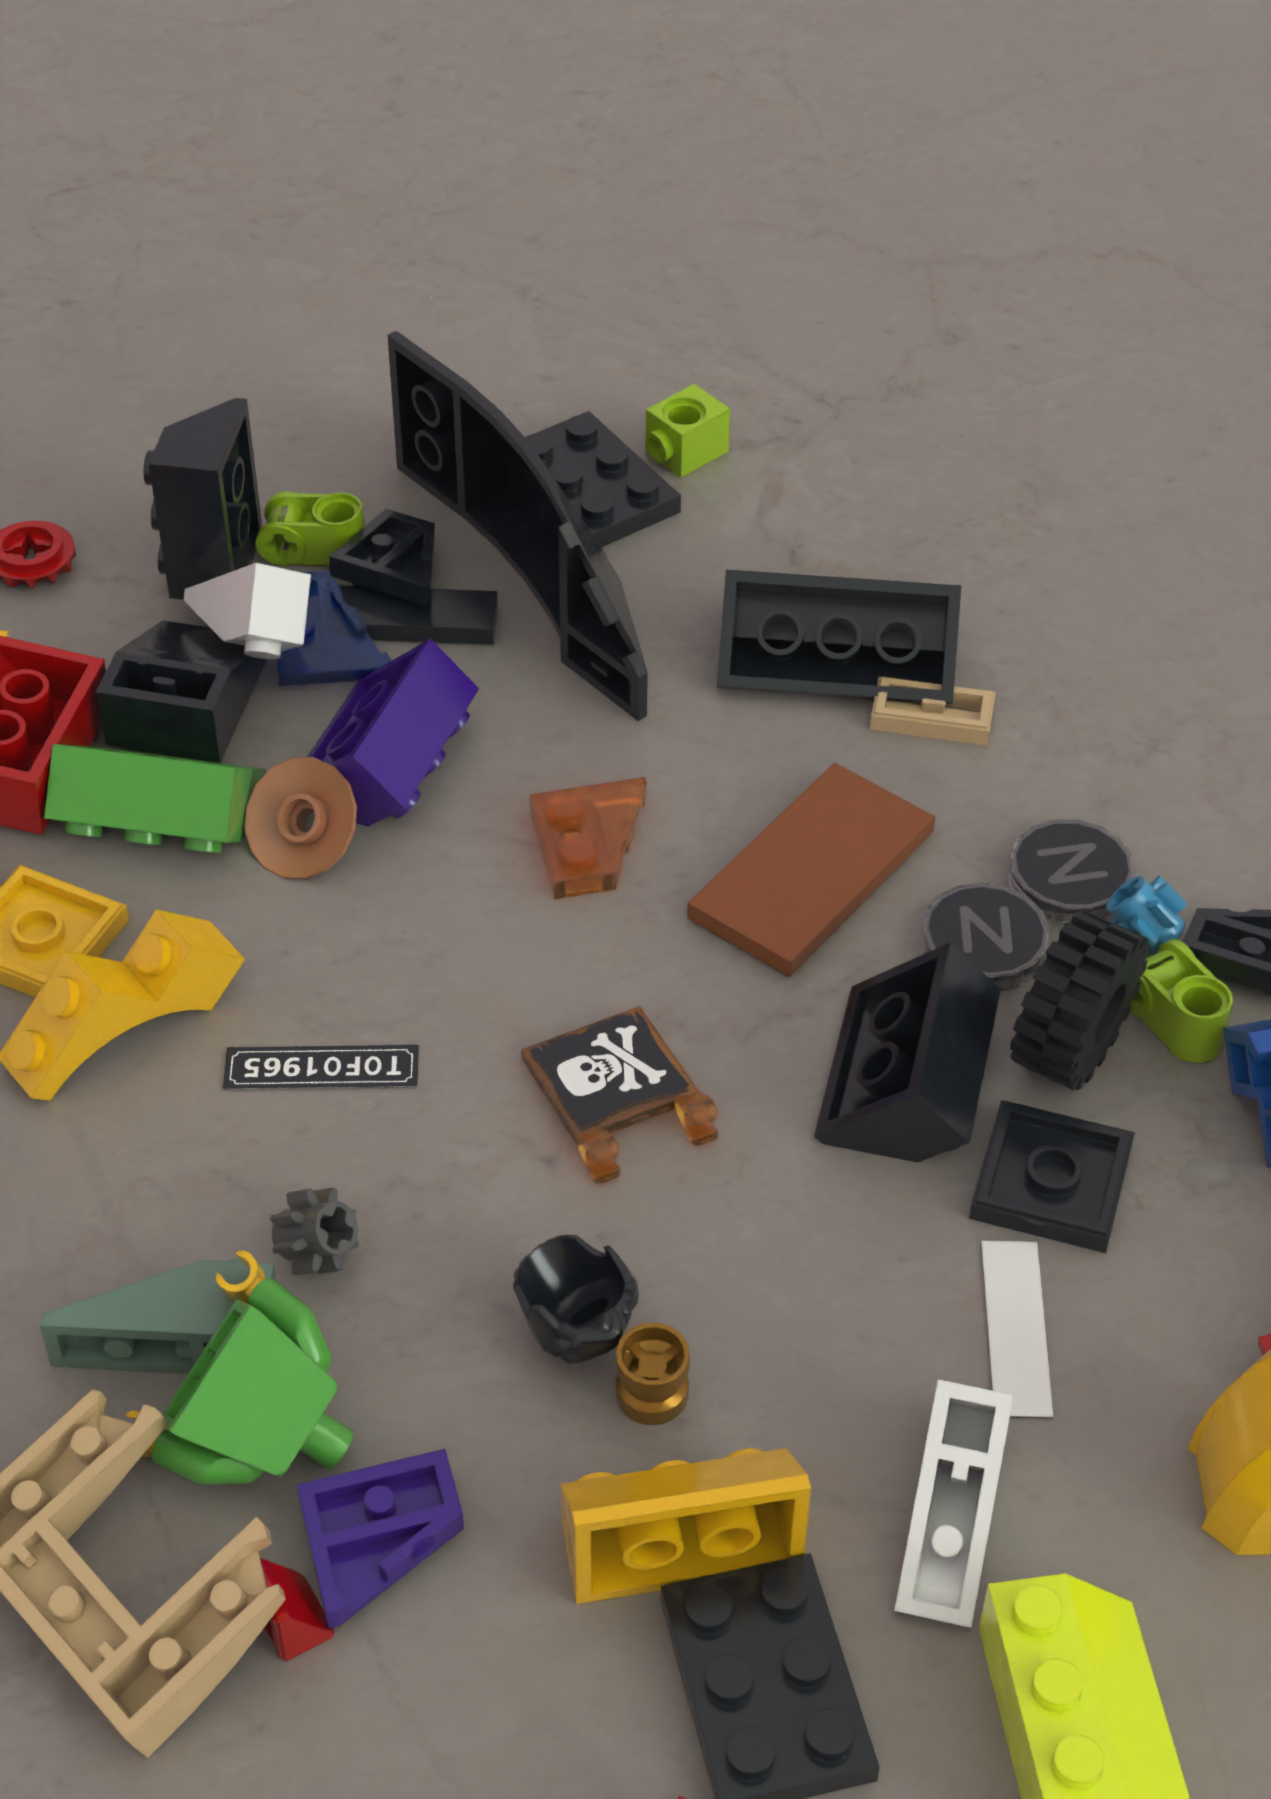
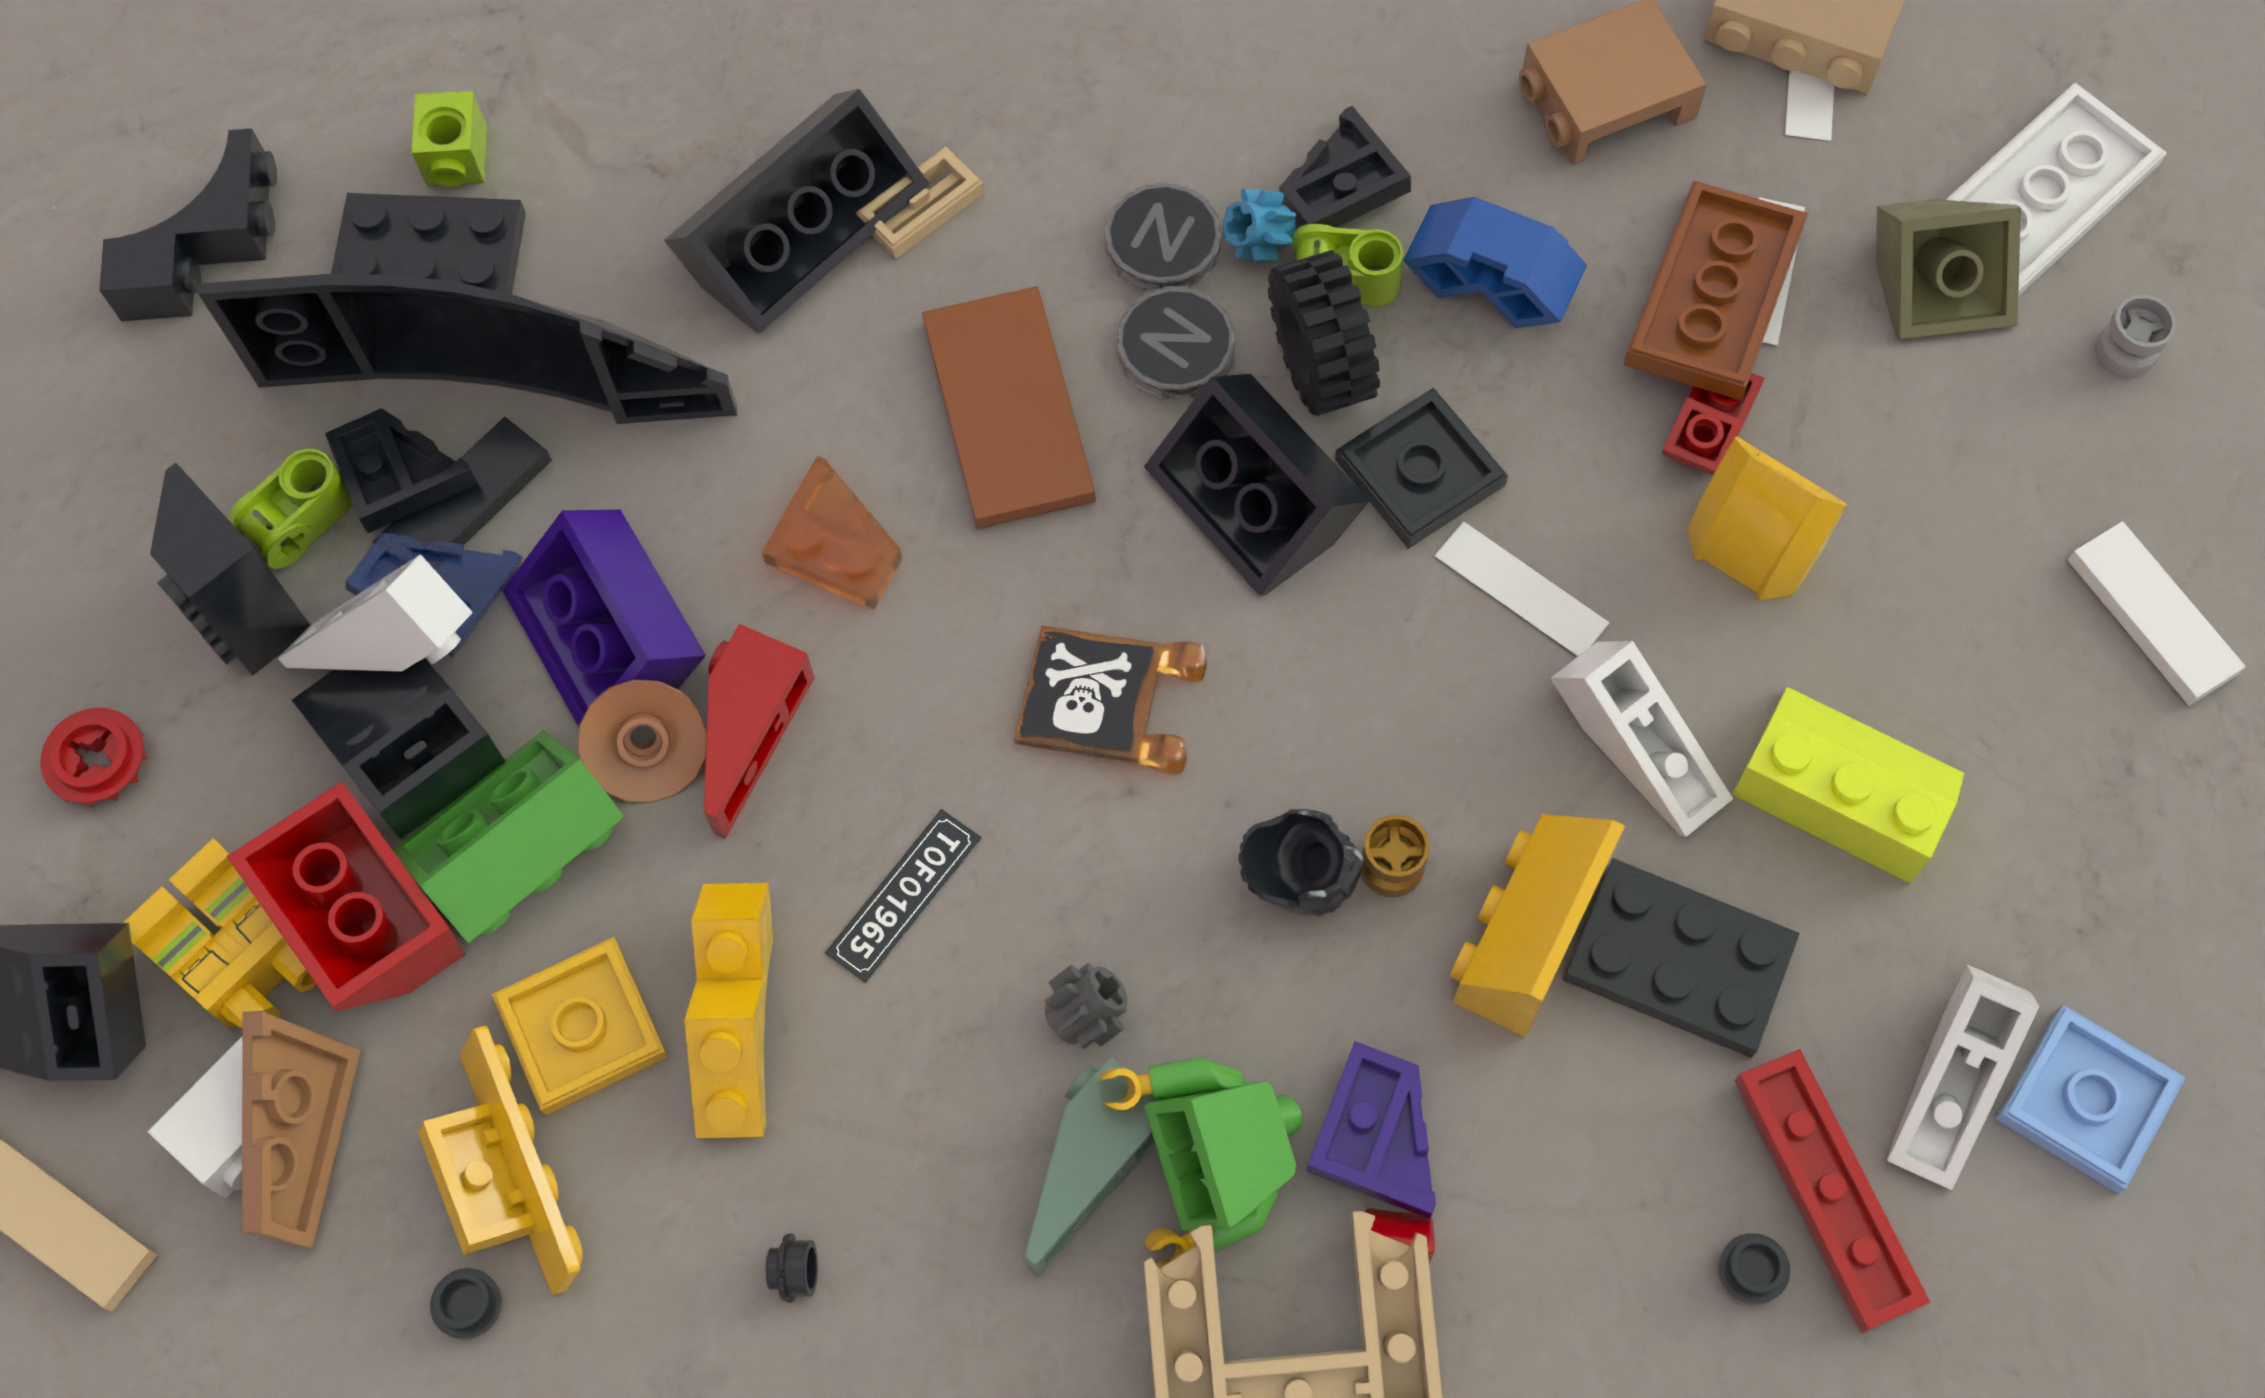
camera: 50 degrees left, 20 degrees up
(377, 867) = (750, 704): none -> red slope
(498, 365) = (227, 222): none -> black arch

